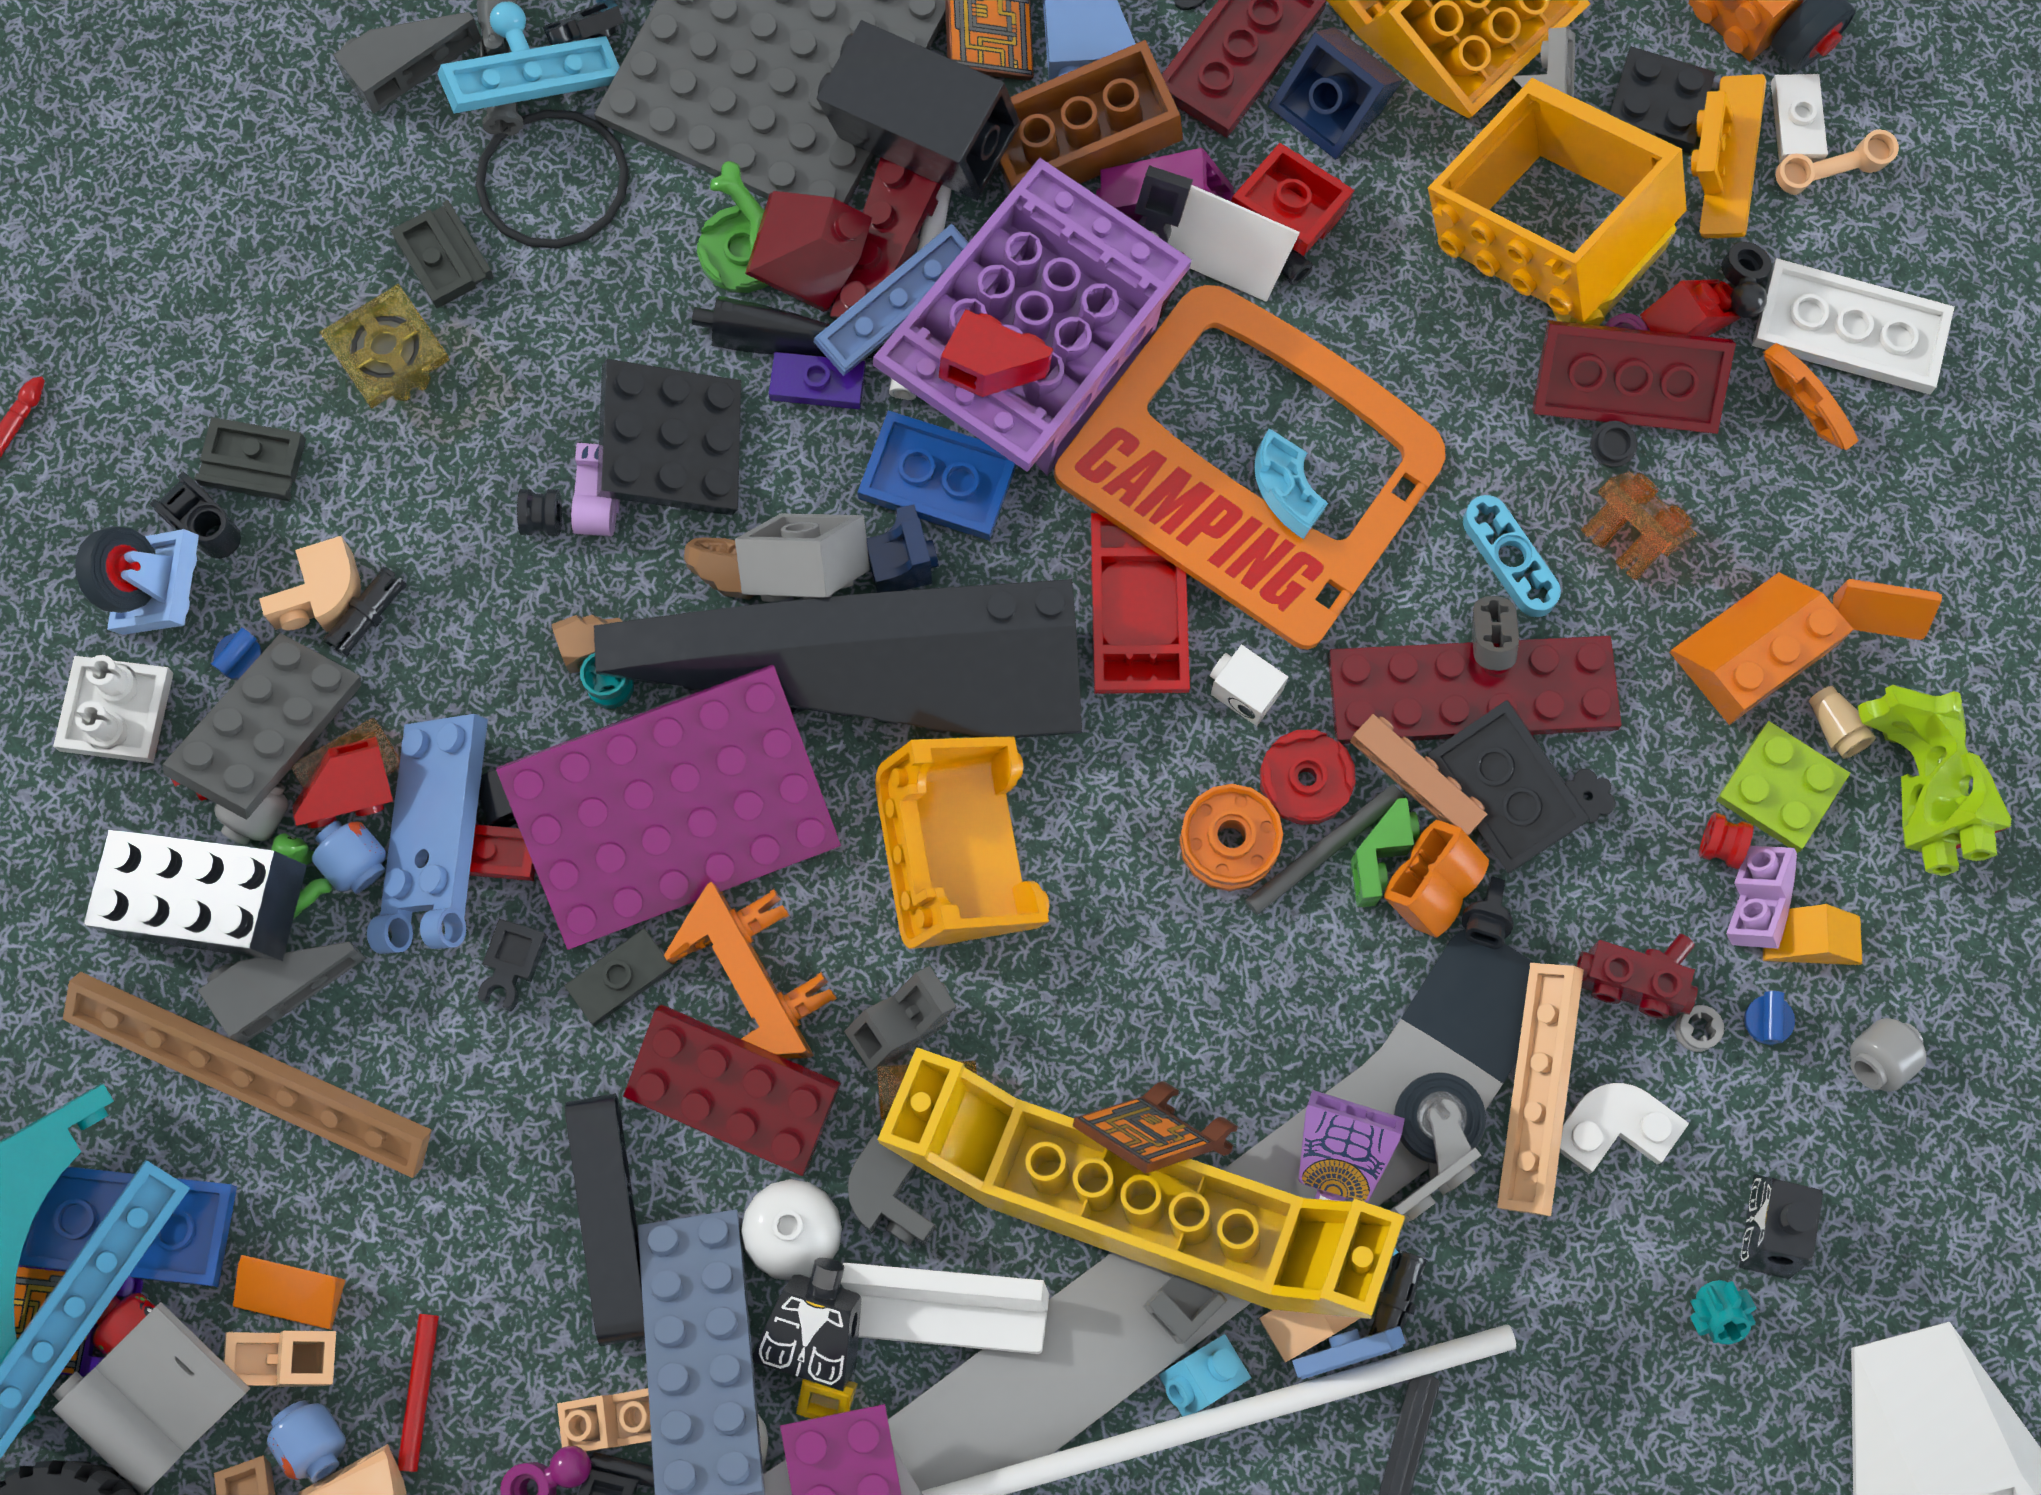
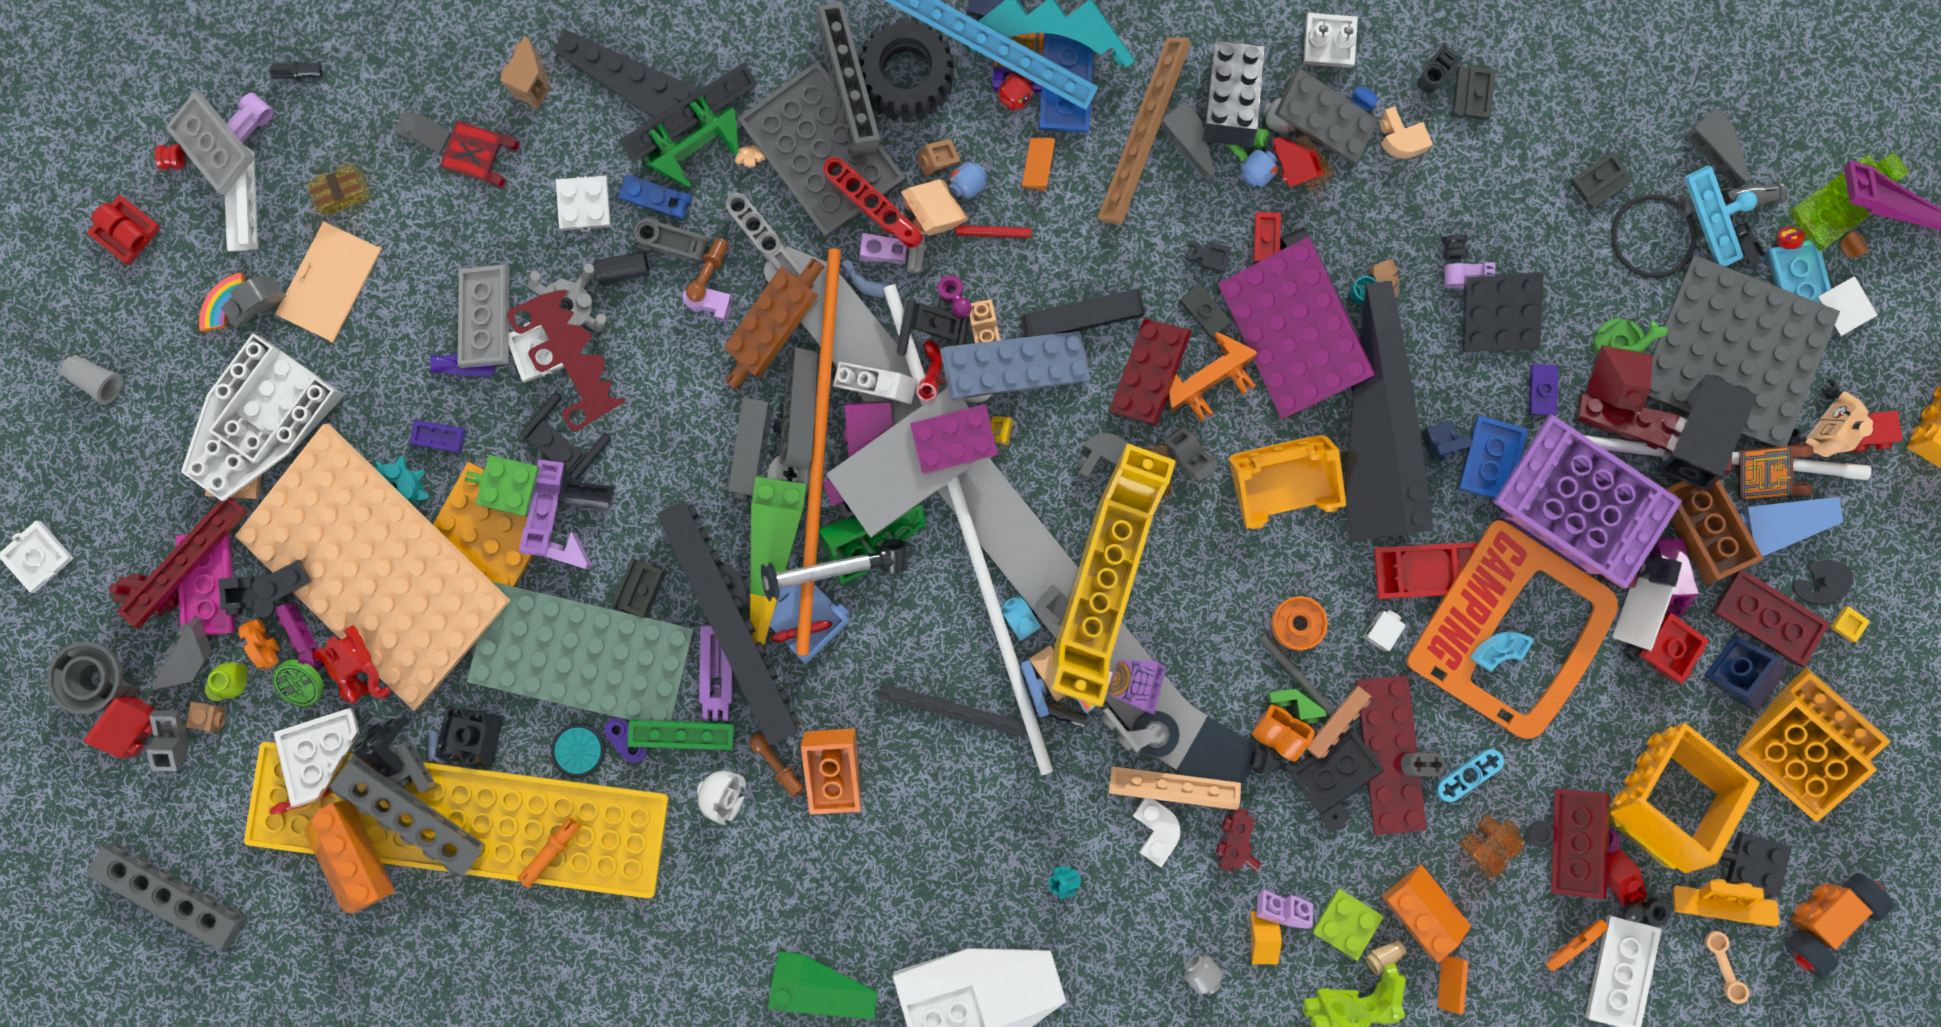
camera: 90 degrees right, 10 degrees up
(138, 577) = (1401, 43): plate -> none
(149, 1398) = (984, 103): light grey door -> none
(282, 1357) = (1006, 162): light nougat brick -> none
(364, 612) = (1392, 161): black pin -> none
(386, 351) = (1540, 157): clear yellow piece -> none
(433, 818) = (1278, 208): medium blue hinge -> none
(715, 564) = (1432, 348): medium nougat rock -> none
(760, 328) = (1570, 366): black piece -> none
(790, 1228) = (1081, 407): white cylinder -> none
(802, 556) = (1438, 386): light grey brick -> none
(814, 1328) = (1033, 420): black torso -> none
(888, 304) = (1588, 423): medium blue tile -> none
(949, 1308) = (1046, 485): white panel -> none
(991, 357) = (1555, 478): red slope -> none
(1150, 1134) = (1140, 583): flag -> none
(1312, 753) = (1348, 660): red plate -> none
(1559, 59) = (1773, 803): light grey slope -> none
(1714, 1027) = (1212, 883): light grey bush -> none
(1726, 840) = (1314, 890): red wheel -> none
(1769, 1018) = (1219, 912): blue plate -> none
(1780, 1223) = (1110, 912): black torso -> none
(1799, 116) = (1755, 947): white plate -> none

